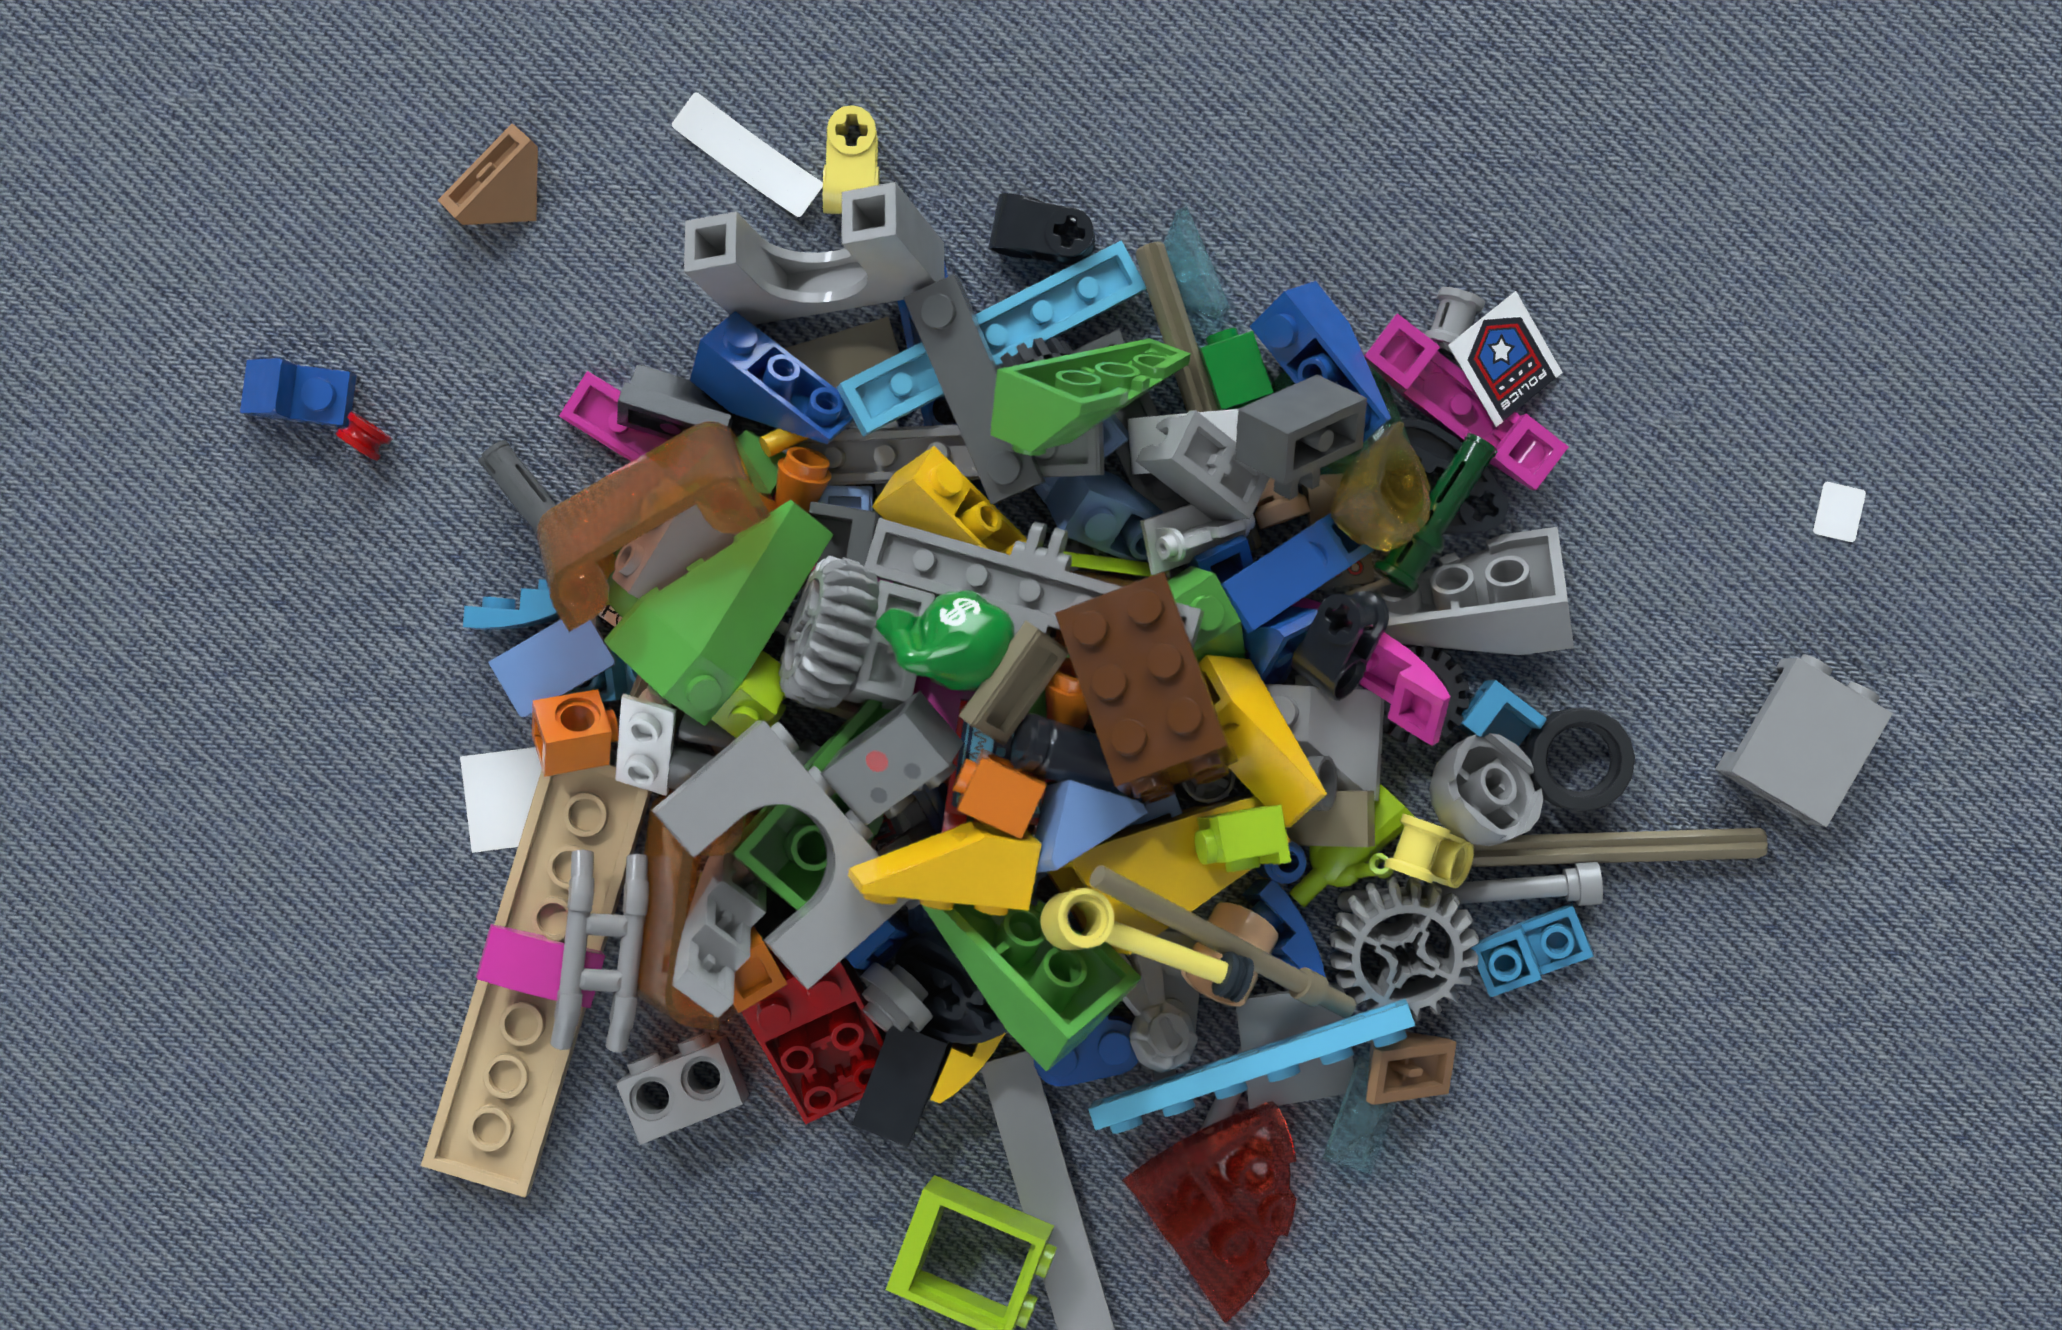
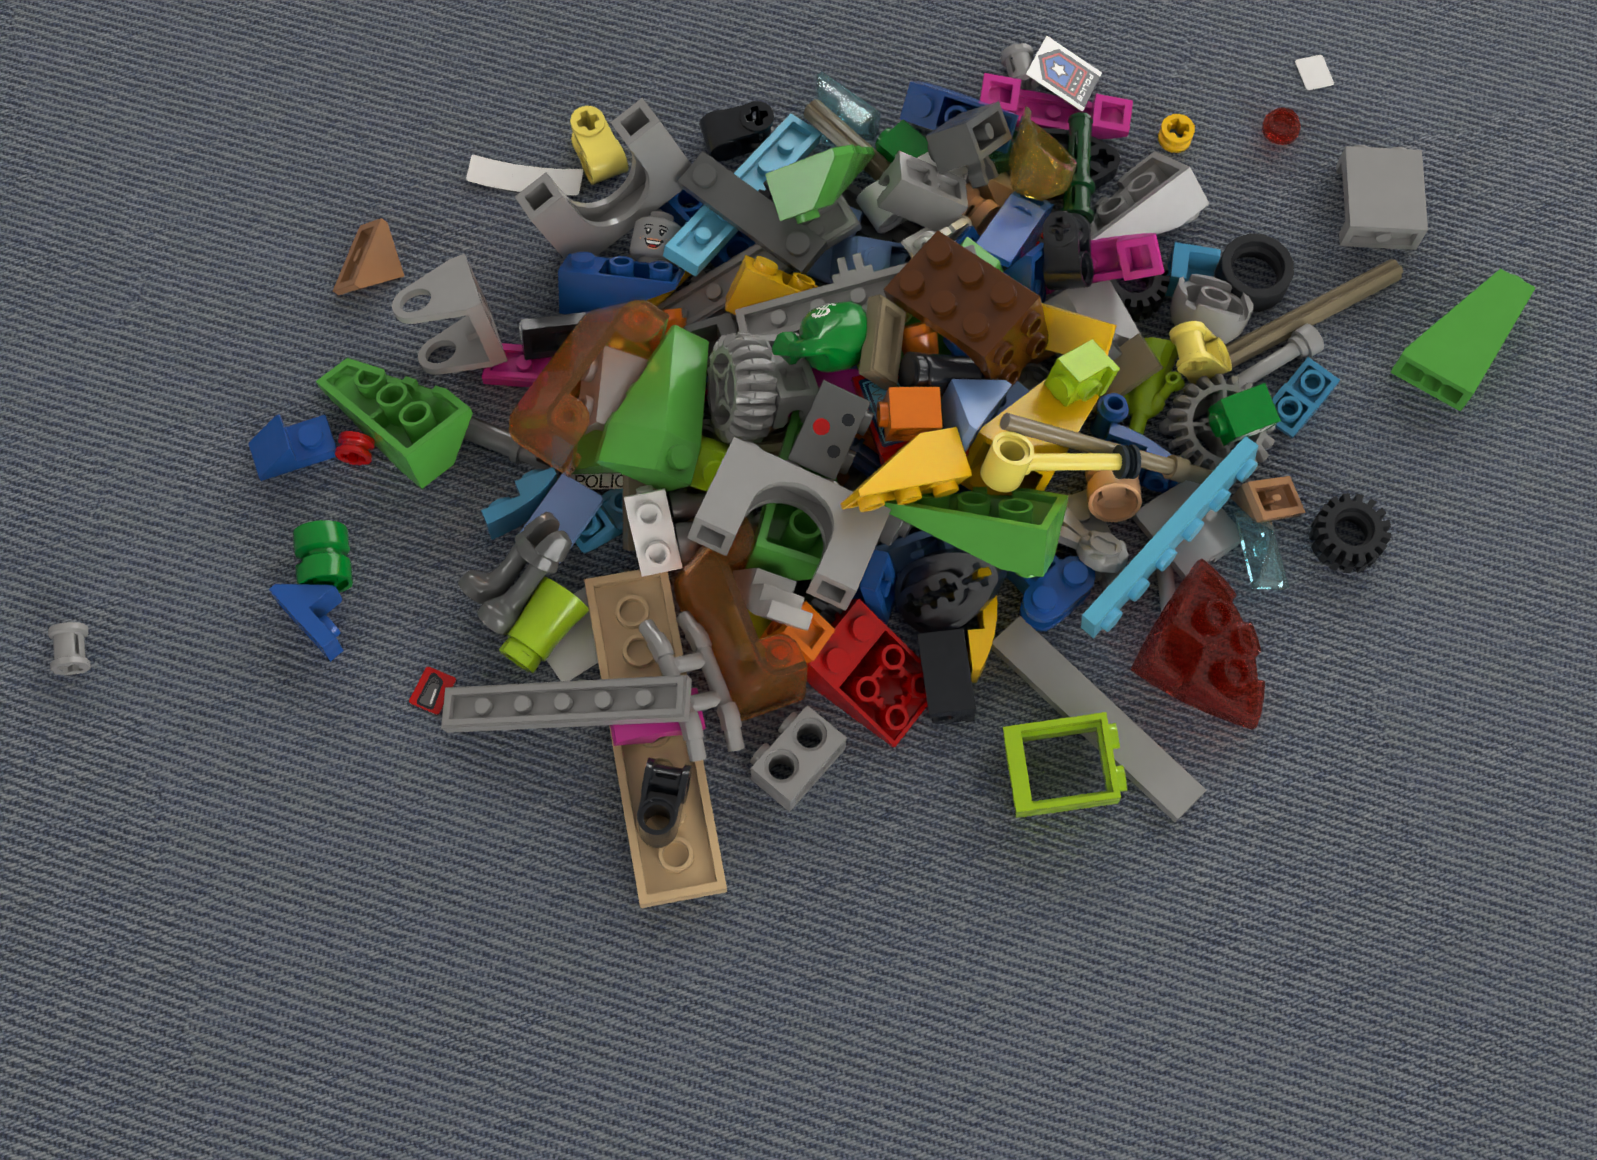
camera: 35 degrees left, 20 degrees down
(209, 618) = (308, 609): none -> blue slope
(260, 565) = (323, 553): none -> green wheel
(321, 783) = (431, 690): none -> sticker
(433, 699) = (540, 547): none -> dark grey piece
(435, 432) = (410, 423): none -> bright green wedge
(447, 902) = (567, 704): none -> light grey tile
(473, 780) = (542, 625): none -> lime plant
(501, 1064) = (662, 794): none -> black piece
(558, 323) = (454, 294): none -> light grey hose
(573, 732) = (598, 556): orange brick -> none
(849, 345) = (651, 236): none -> light grey head
(894, 998) = (911, 610): light grey plate -> none
(1426, 968) = (1243, 414): none -> green brick
(1504, 1175) = (1360, 514): none -> black tyre
(1616, 504) = (1182, 125): none -> yellow bush
(1742, 573) = (1281, 126): none -> clear red plate
(1785, 987) = (1461, 345): none -> bright green slope

